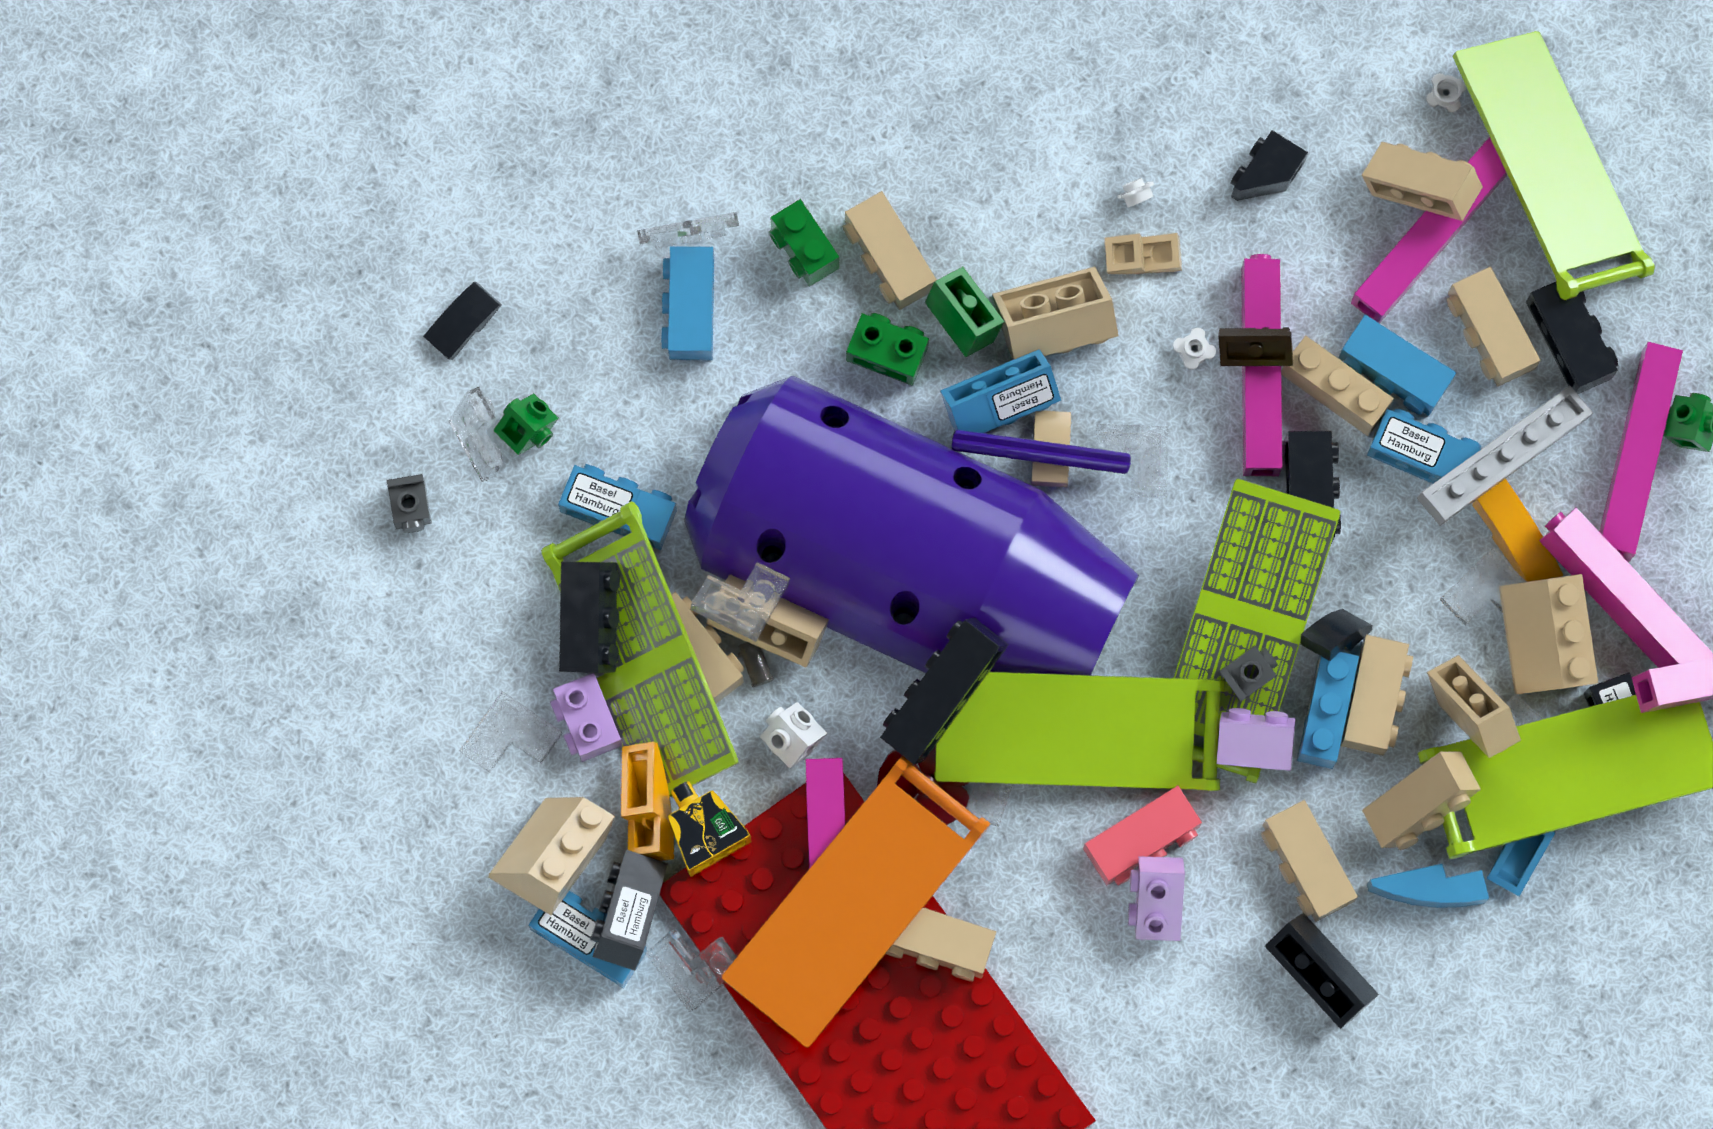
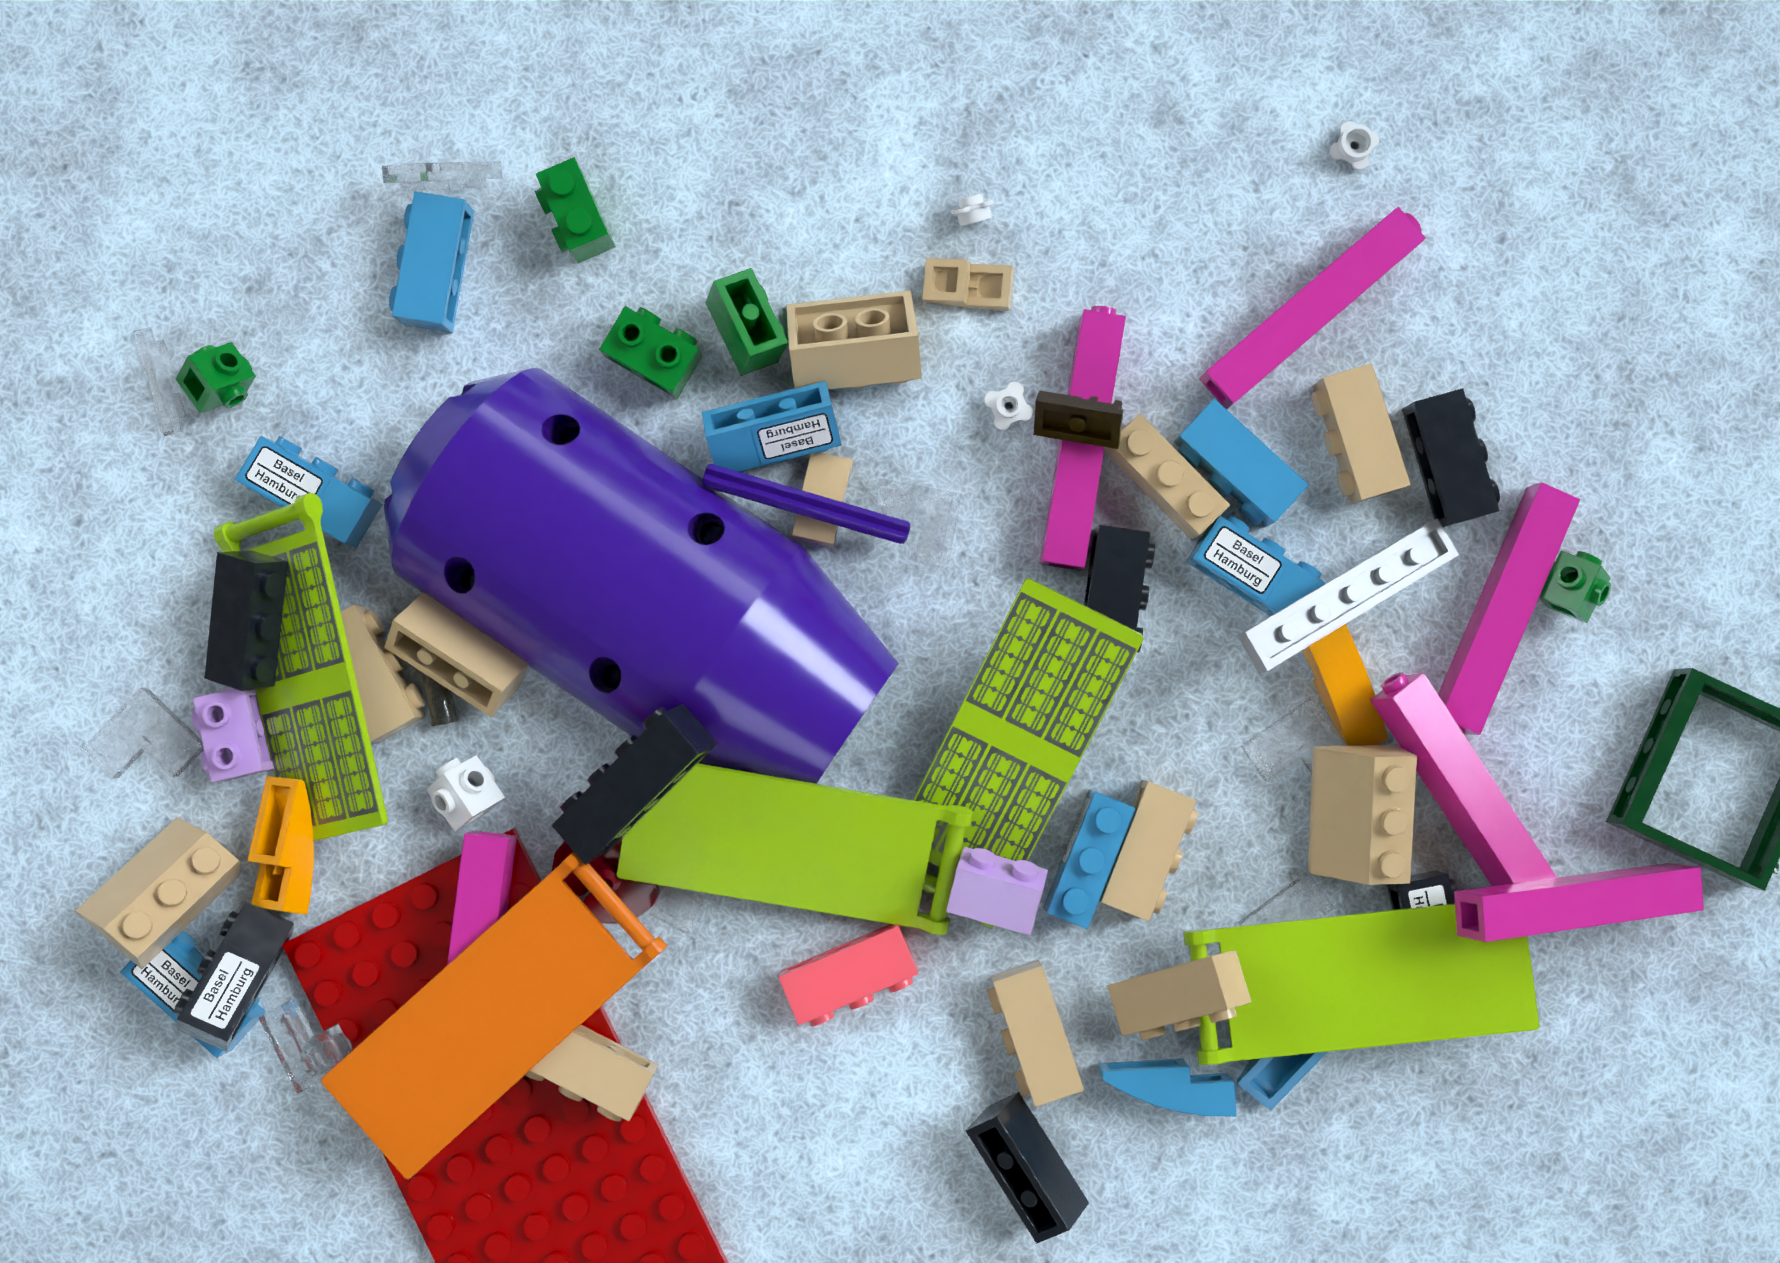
camera: 10 degrees right, 10 degrees up
(413, 518) = (84, 451): dark grey brick -> none
(461, 320) = (167, 240): black slope -> none
(704, 828) = (339, 891): black torso -> none
(745, 609) = (421, 646): clear plate -> none
(888, 251) = (671, 235): tan brick -> none
(1158, 898) = (853, 1055): lavender brick -> none
(1235, 676) = (1008, 793): dark grey brick -> none
(1271, 169) = (1134, 206): black slope -> none
(1334, 633) = (1112, 773): black slope -> none
(1422, 180) = (1311, 247): tan brick -> none
(1474, 706) = (1260, 893): tan brick -> none
(1551, 161) = (1464, 247): flag -> none

